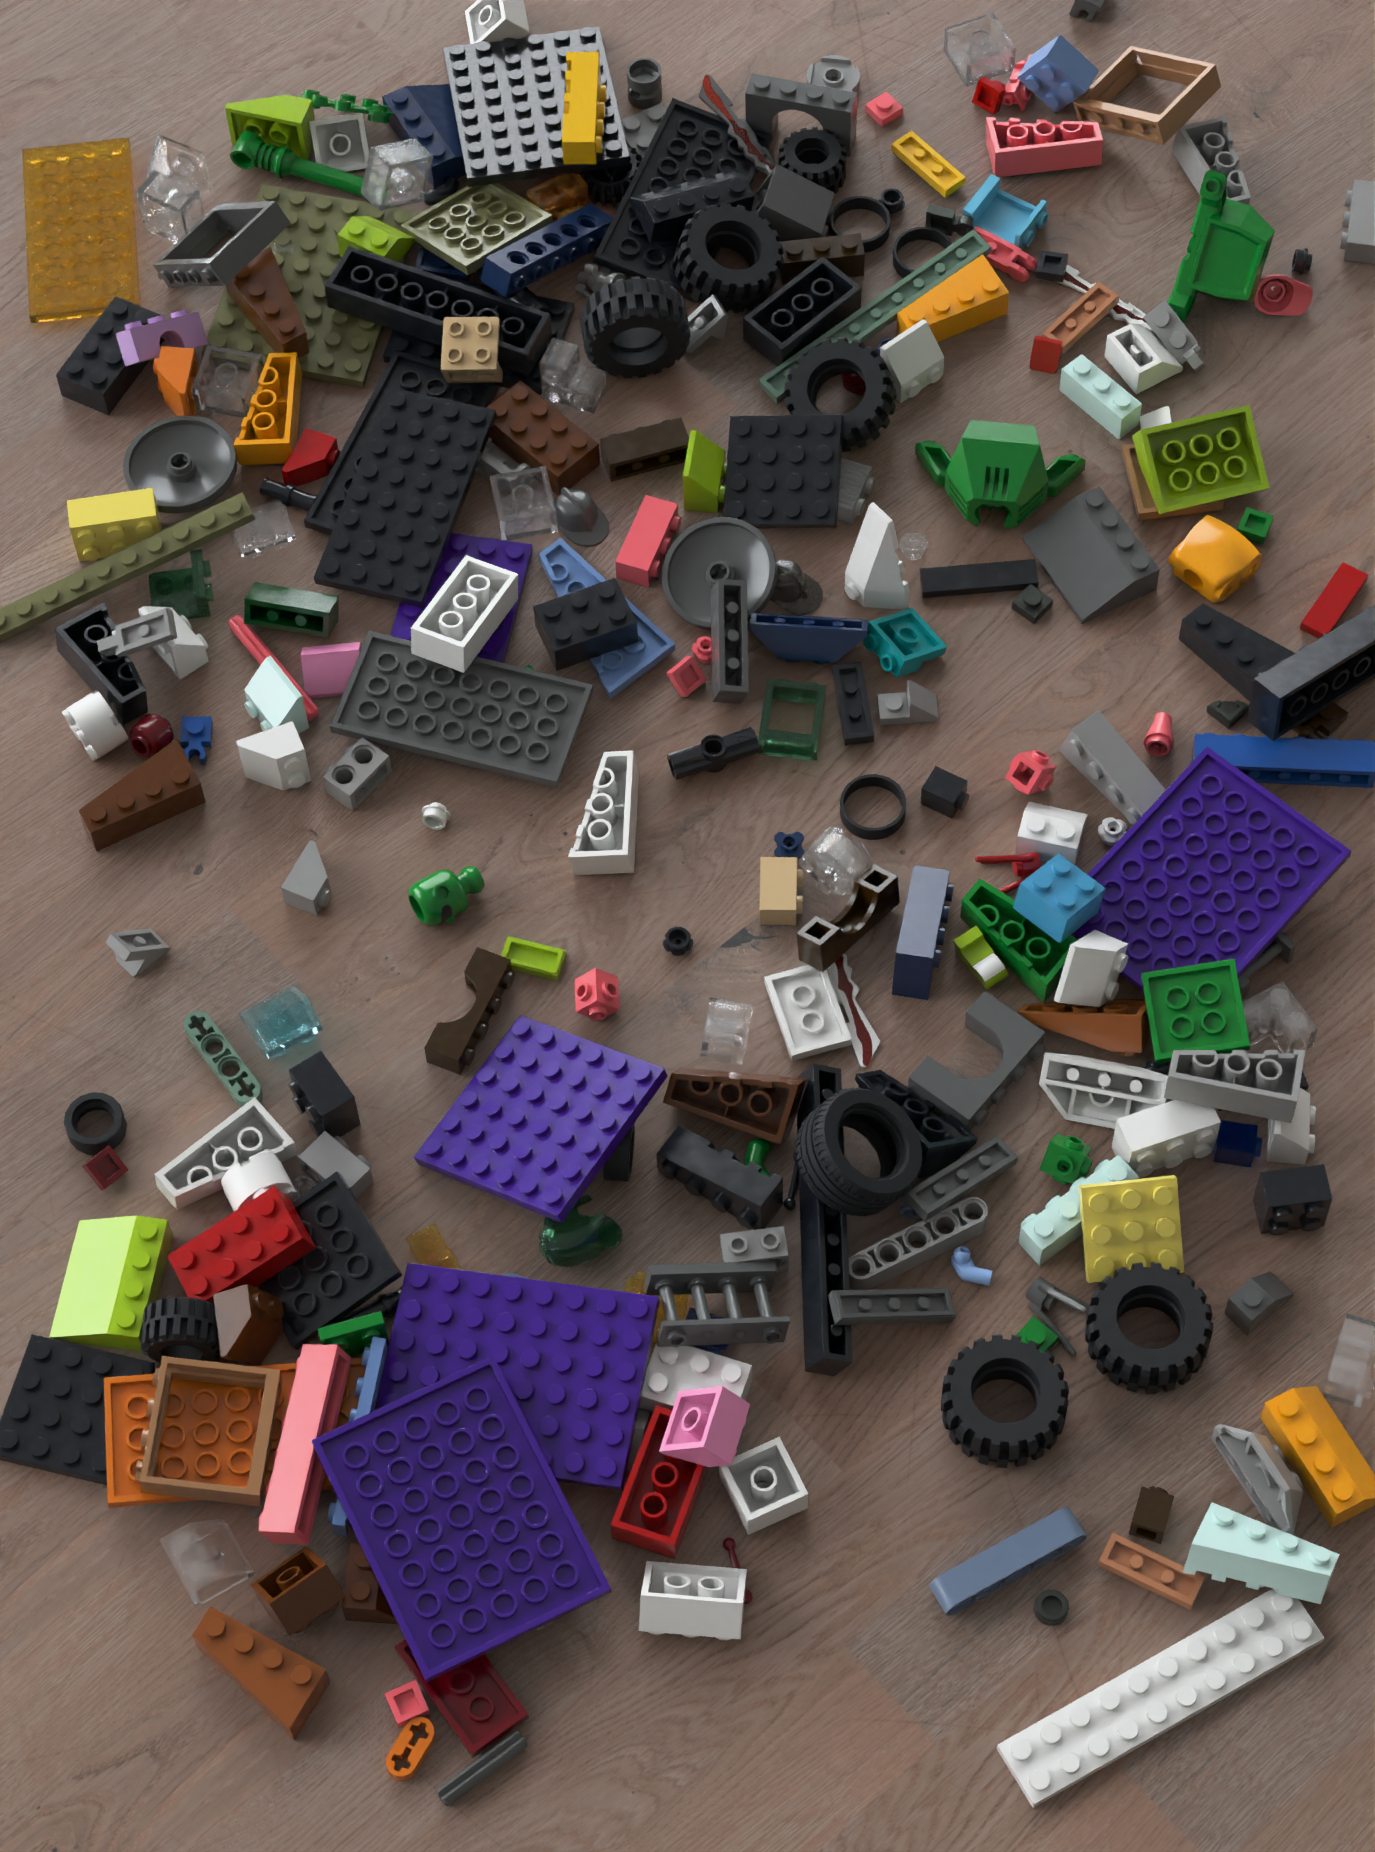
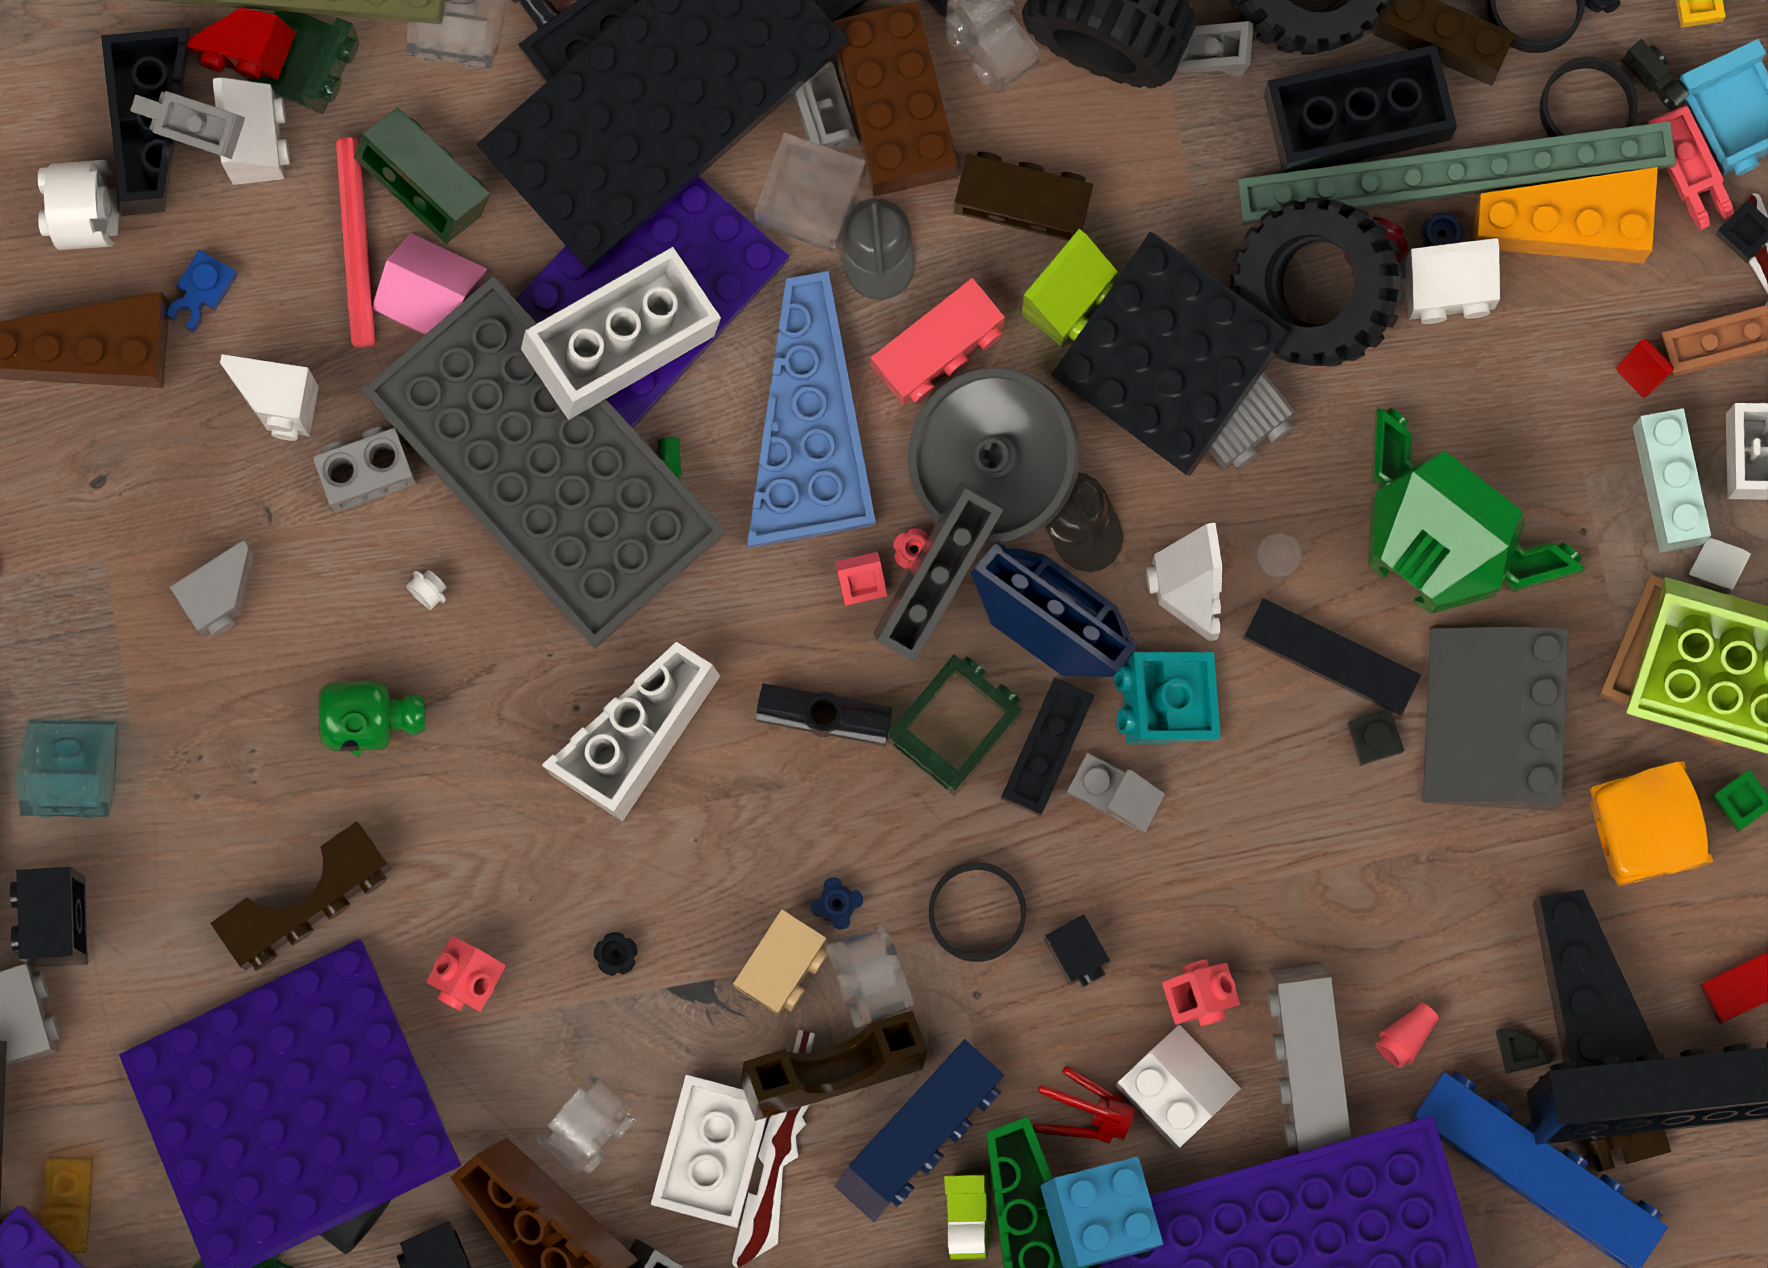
camera: 30 degrees right, 20 degrees up
(141, 589) = (246, 42): none -> red slope
(150, 735) = (143, 256): dark red head -> none
(274, 698) = (319, 308): light aqua slope -> none
(534, 958) = (426, 865): lime tile -> none
(585, 624) = (771, 433): black brick -> none
(1109, 837) = (1244, 1139): white plate -> none

